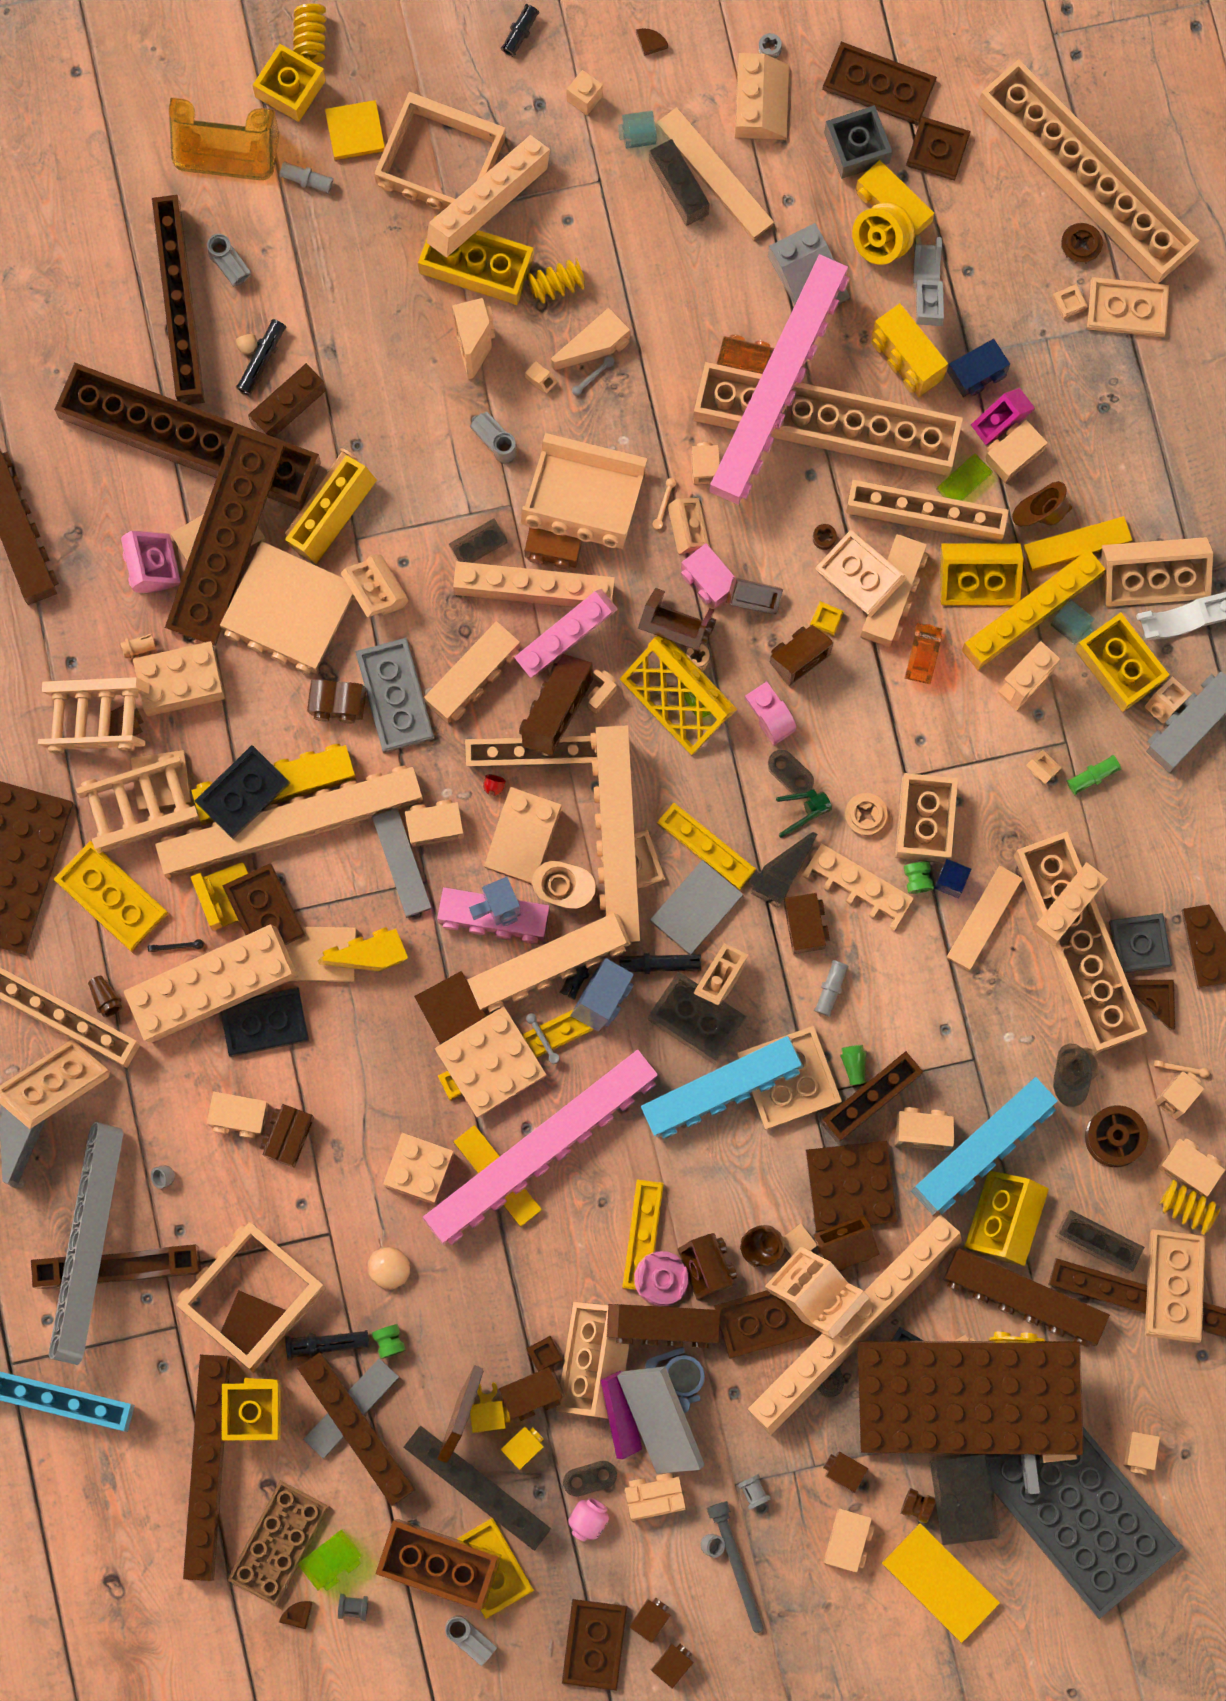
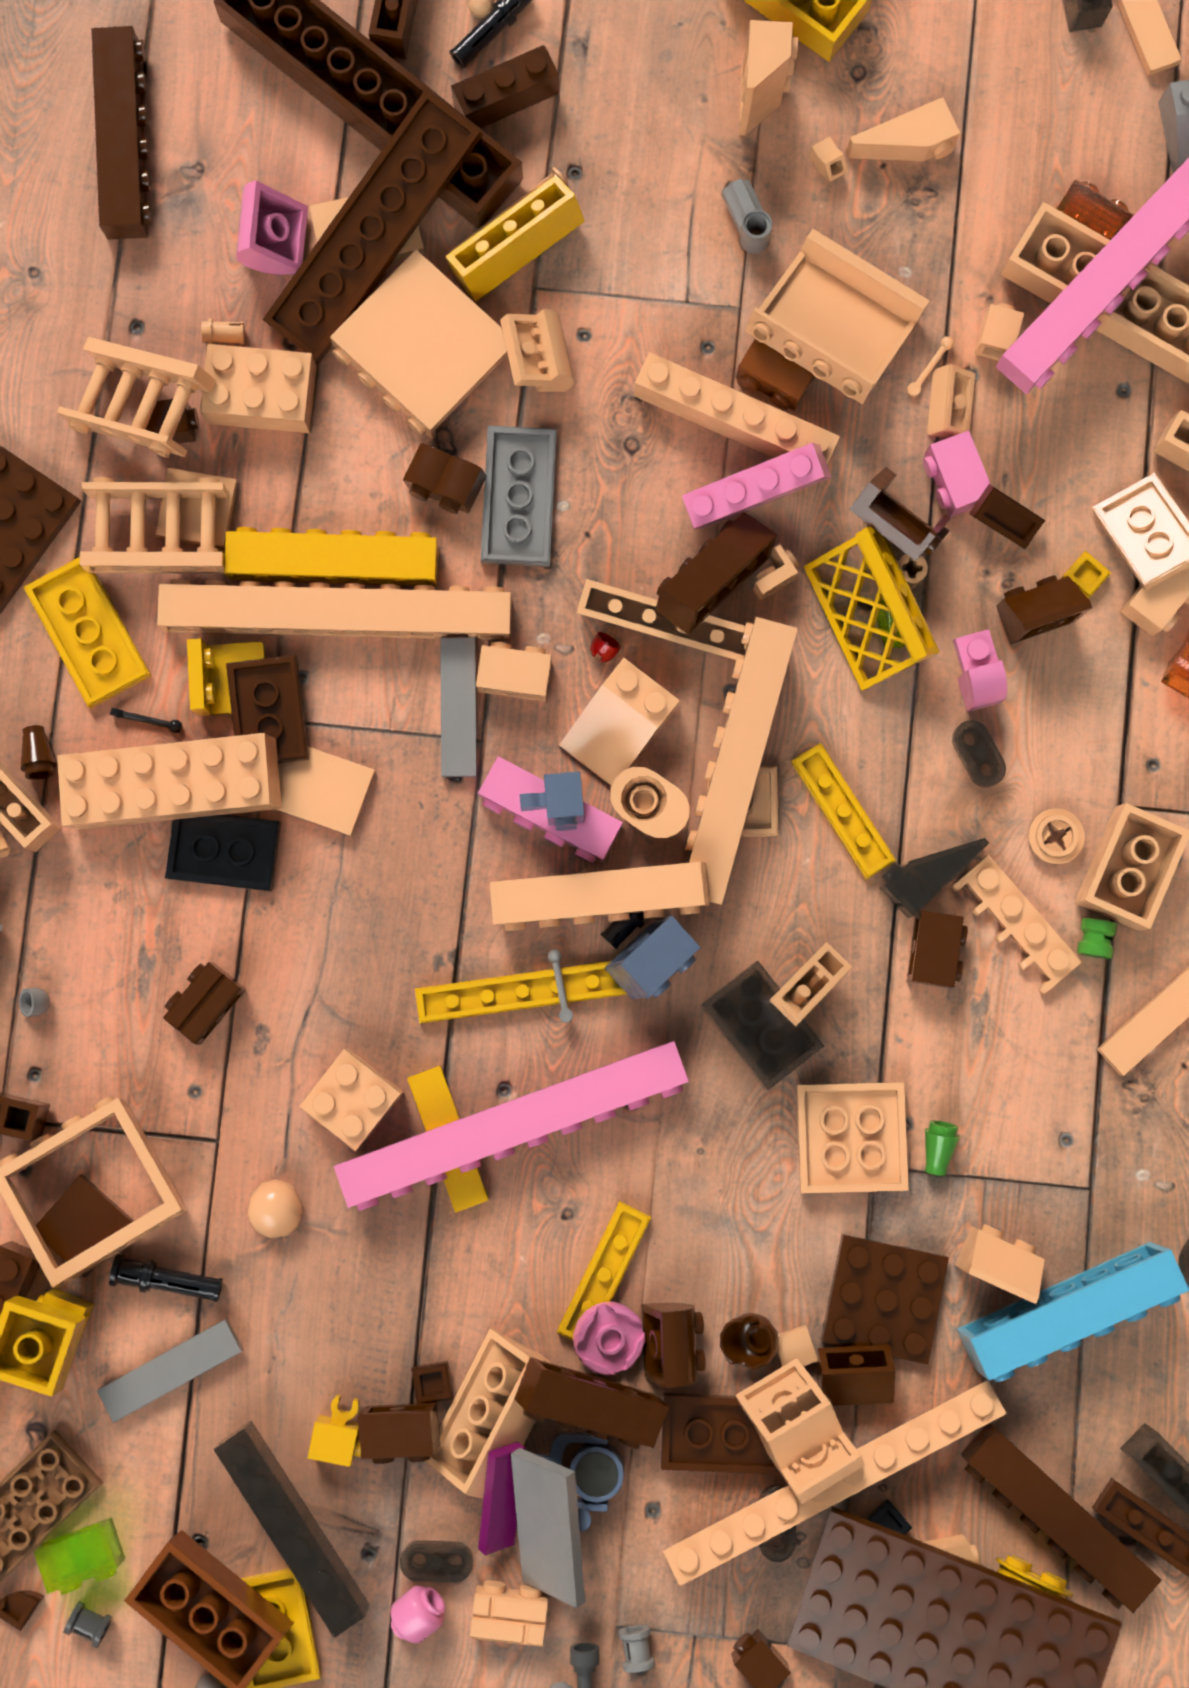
camera: 15 degrees right, 5 degrees up
(237, 1114) = (150, 955): light nougat brick -> none
(242, 792) = (287, 554): black tile -> none
(356, 1429) = (174, 1442): reddish brown arch -> none
(371, 954) = (385, 810): yellow slope -> none
(389, 1341) = (243, 1303): bright green wheel -> none
(449, 1007) = (458, 908): reddish brown tile -> none
(460, 1414) = (297, 1436): reddish brown tile -> none
(472, 673) = (623, 499): light nougat brick -> none
(478, 542) = (685, 339): clear smoke plate -> none
(490, 1062) = (485, 994): light nougat plate -> none
(523, 1447) = (366, 1494): yellow brick -> none
(556, 281) = (888, 44): yellow piece -> none
(608, 362) = (918, 170): light grey hinge -> none
(652, 963) = (724, 935): black pin -> none
(696, 907) = (805, 883): light grey tile -> none
(721, 1087) = (765, 1124): medium azure brick -> none
(814, 806) = (995, 807): dark green plant -> none
(822, 529) = (1116, 461): reddish brown bush -> none
(831, 988) = (941, 1041): light grey pin -> none
(871, 1097) = (949, 1199): reddish brown brick -> none
(952, 878) = (1140, 954): clear blue brick -> none
(1006, 1217) = (1068, 1408): yellow slope -> none

